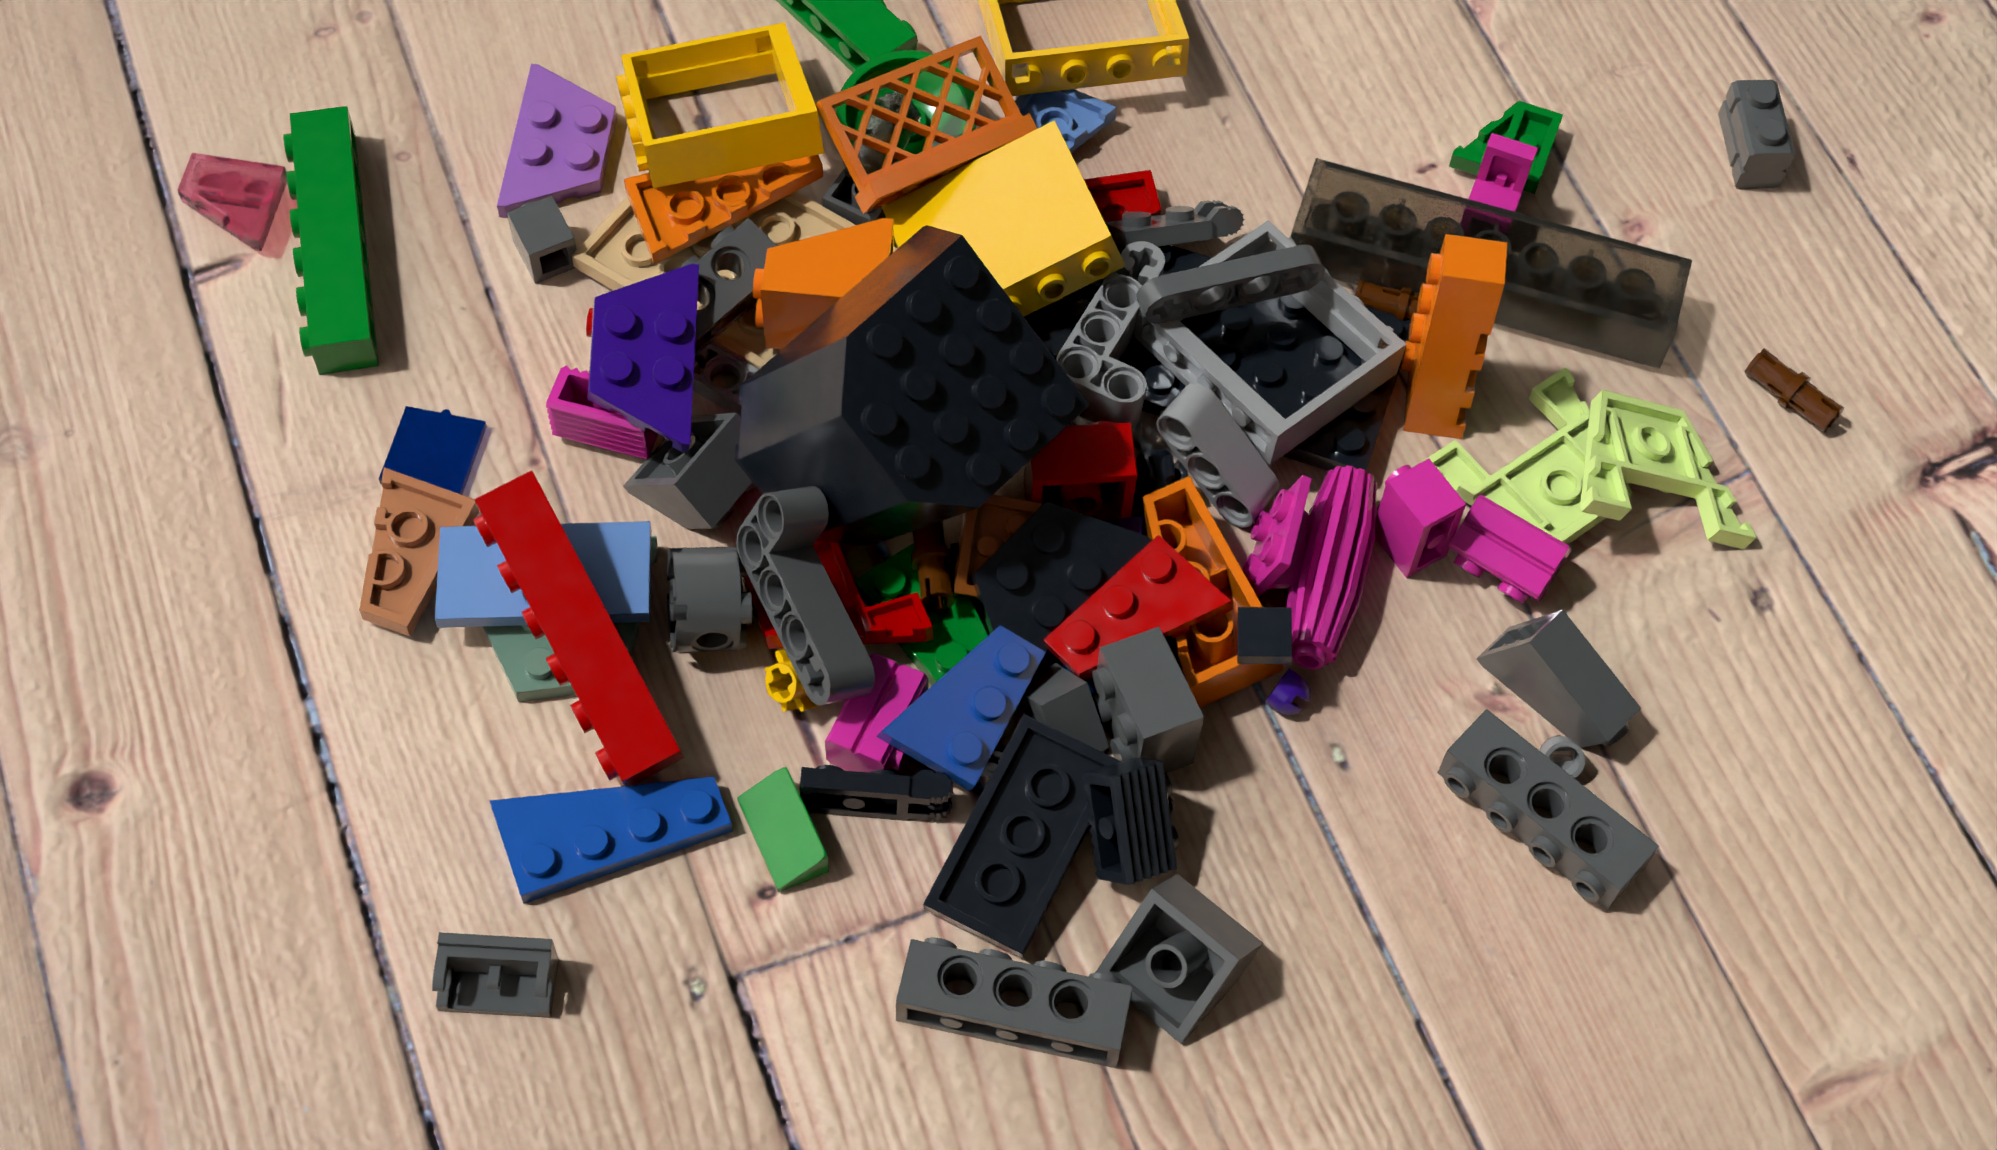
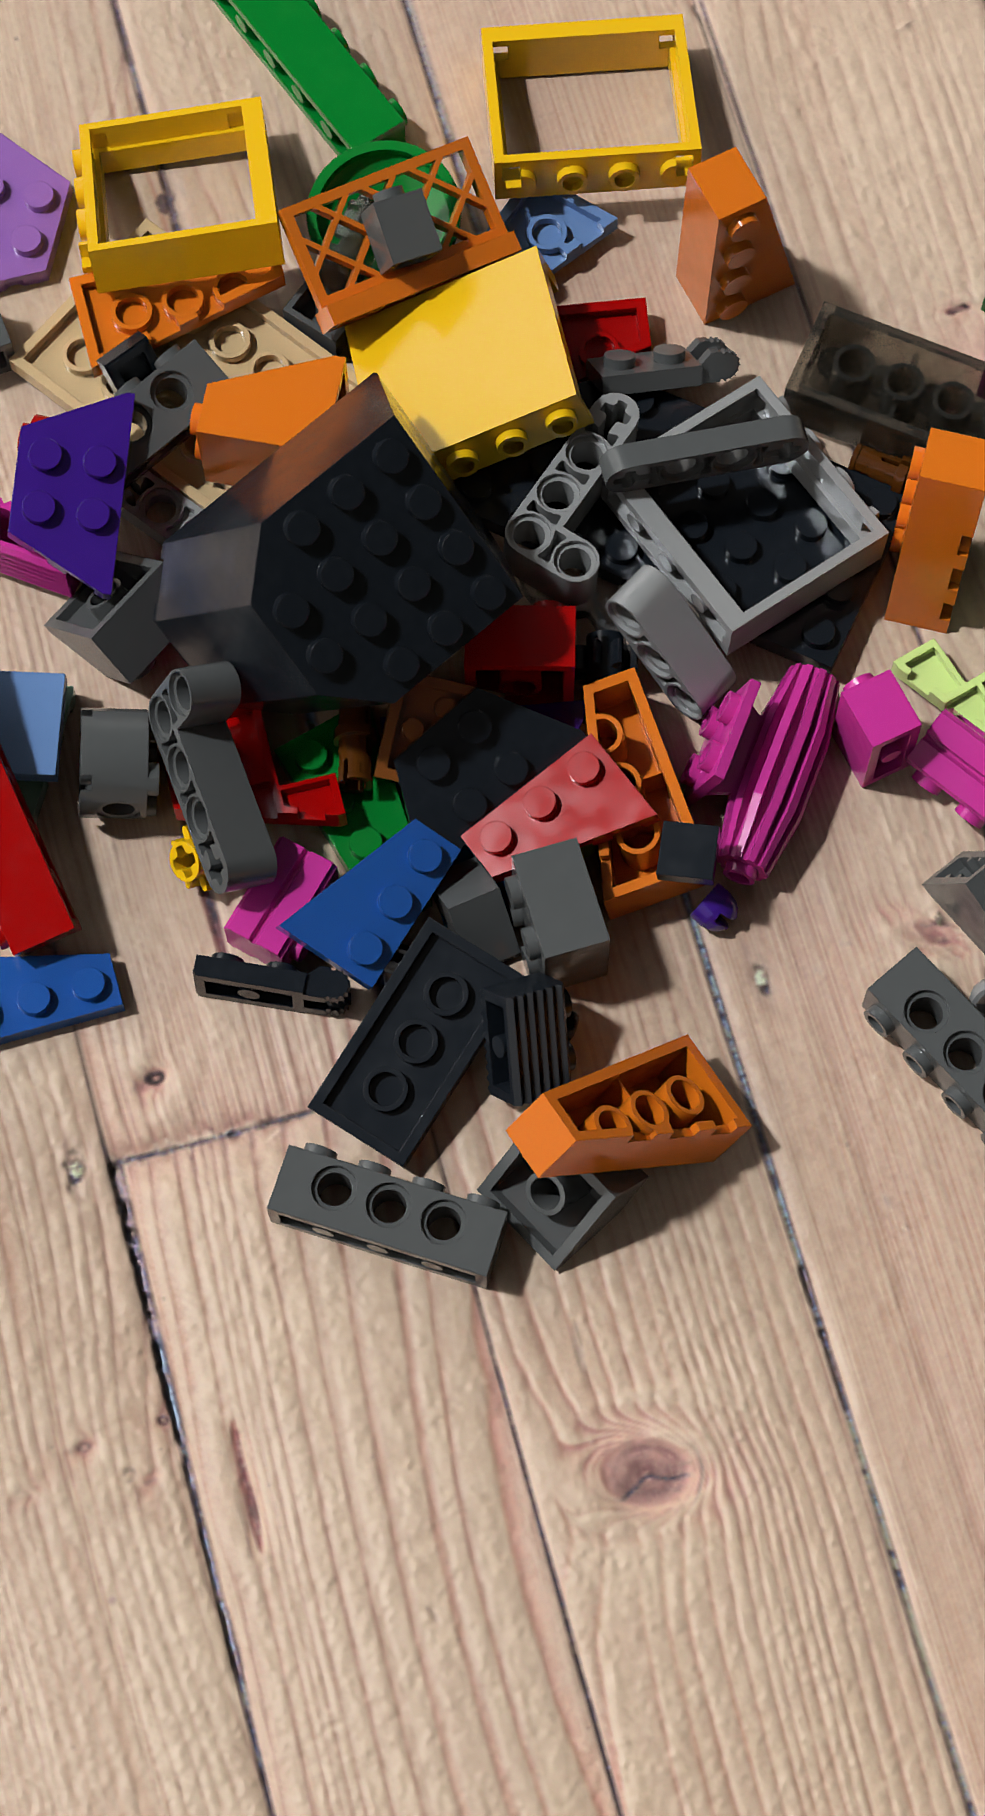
camera: 10 degrees right, 10 degrees up
(684, 243) = (128, 360): none -> black tile
(783, 830) = (174, 1016): slope -> none
(930, 112) = (400, 229): none -> dark grey brick
(1225, 107) = (728, 240): none -> orange wedge
(1244, 882) = (631, 1116): none -> orange wedge

